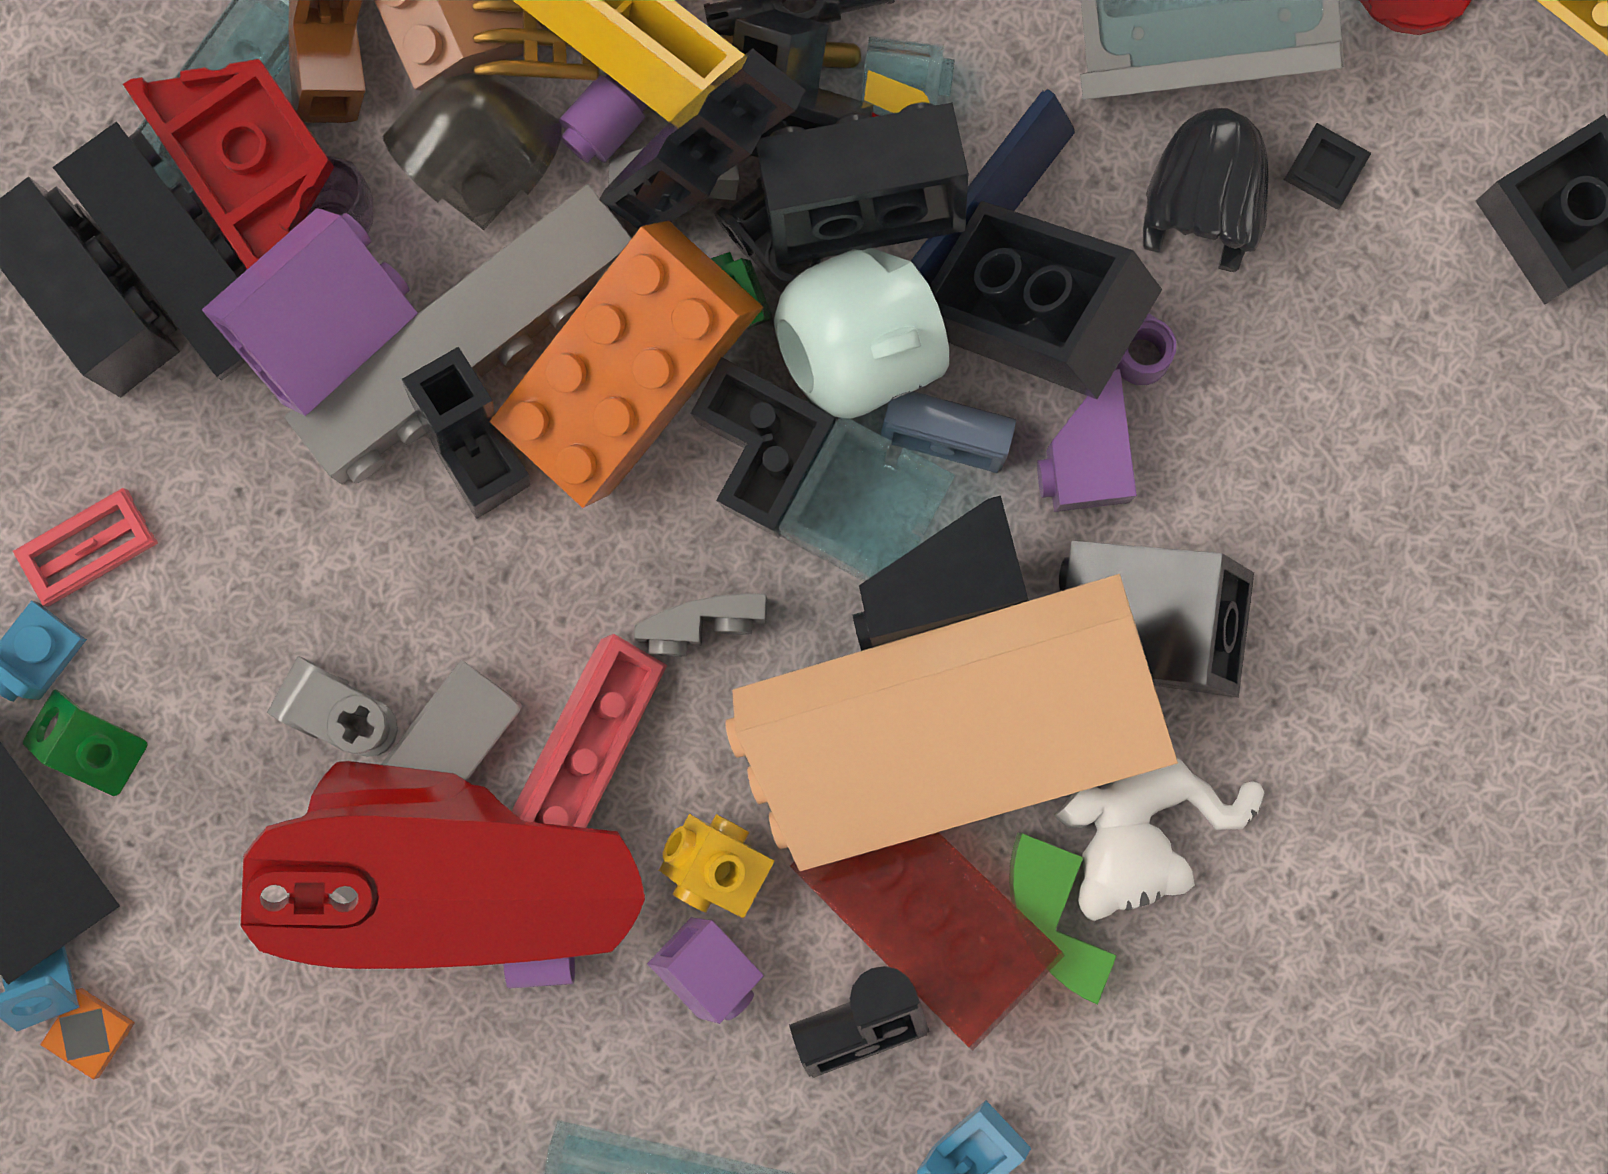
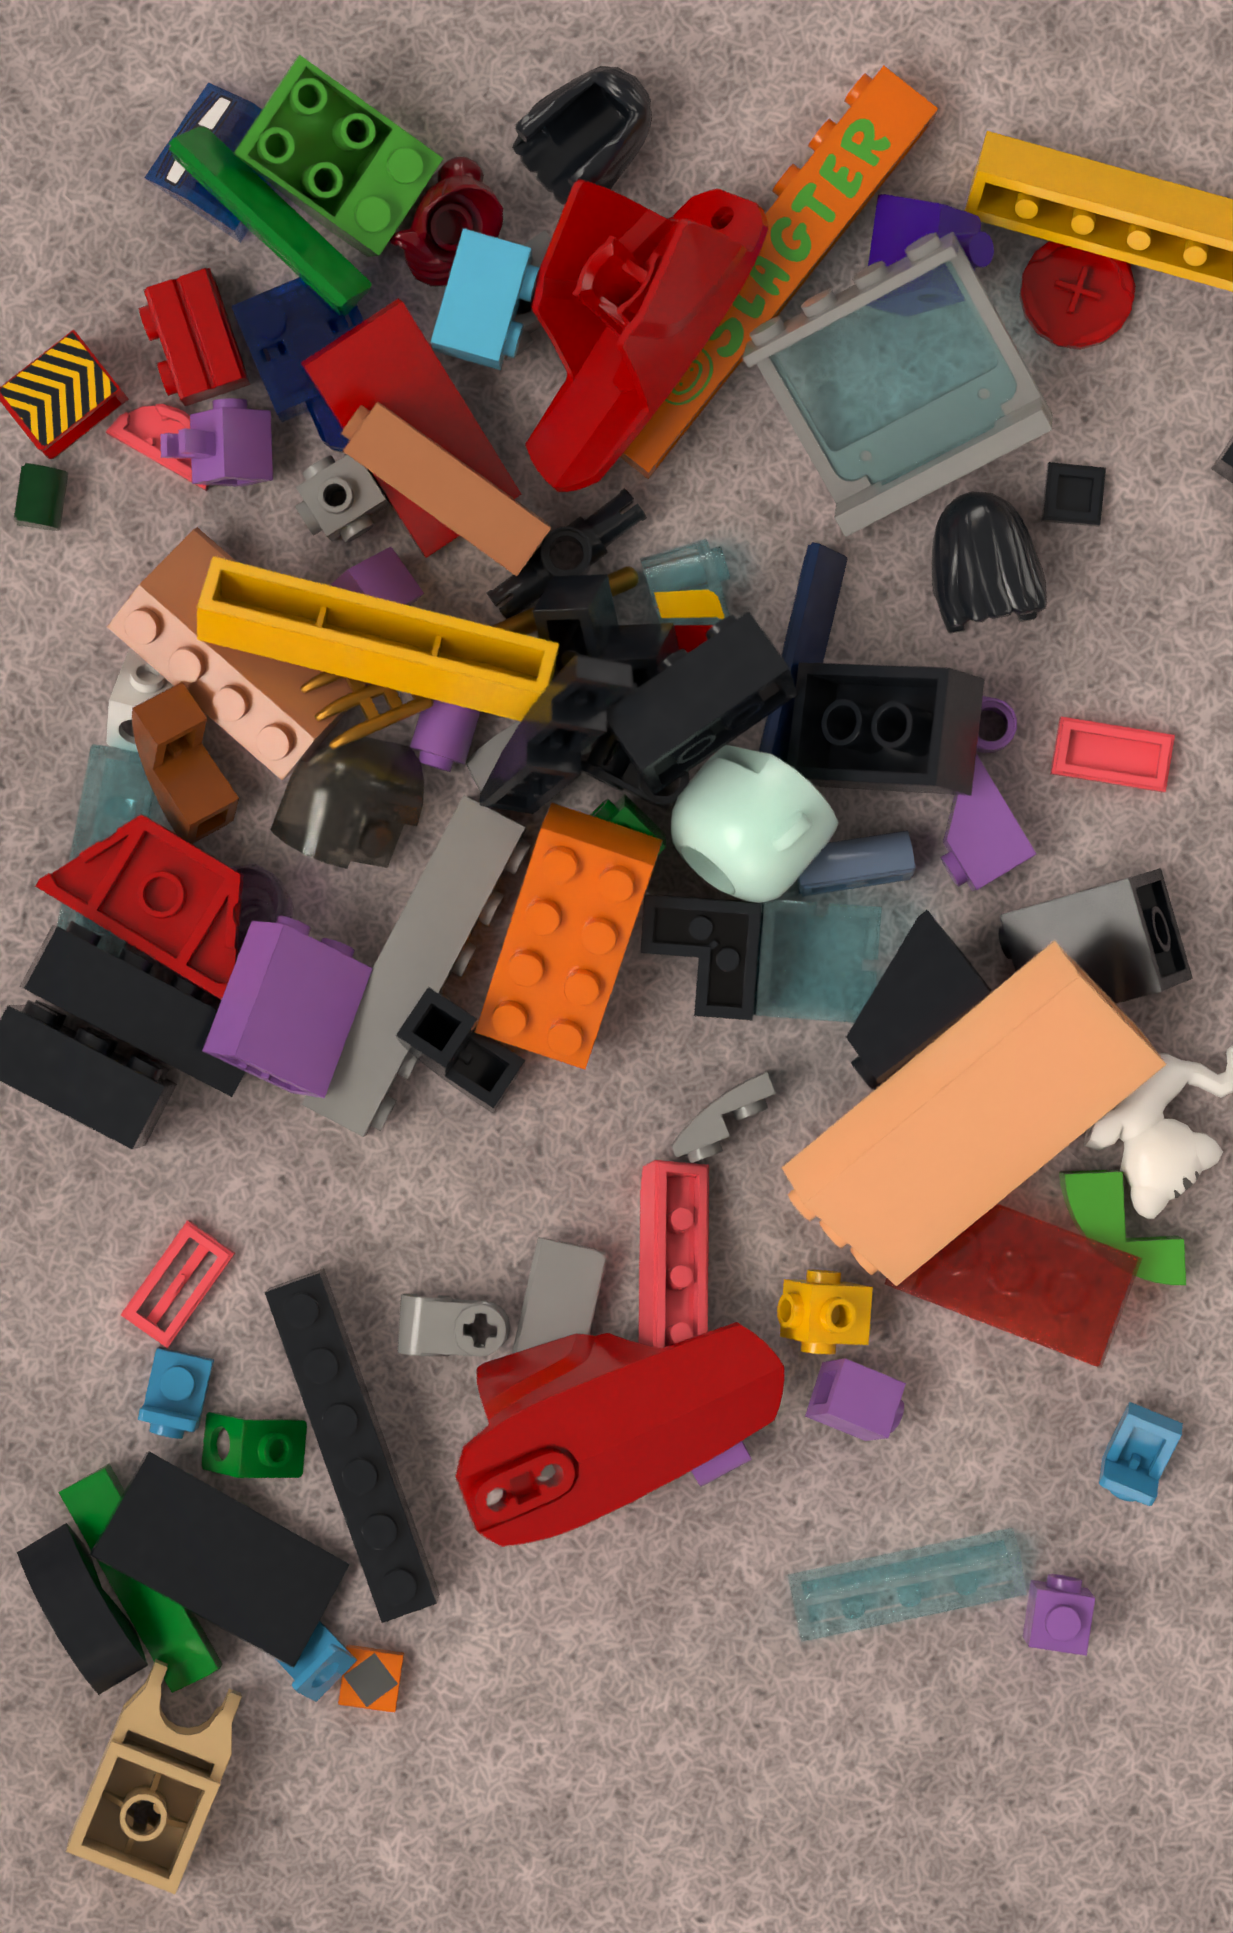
camera: 30 degrees left, 5 degrees up
(176, 786) = (352, 1445): none -> black brick
(879, 1017) = (1013, 1374): black brick -> none
(1255, 437) = (1112, 754): none -> coral tile

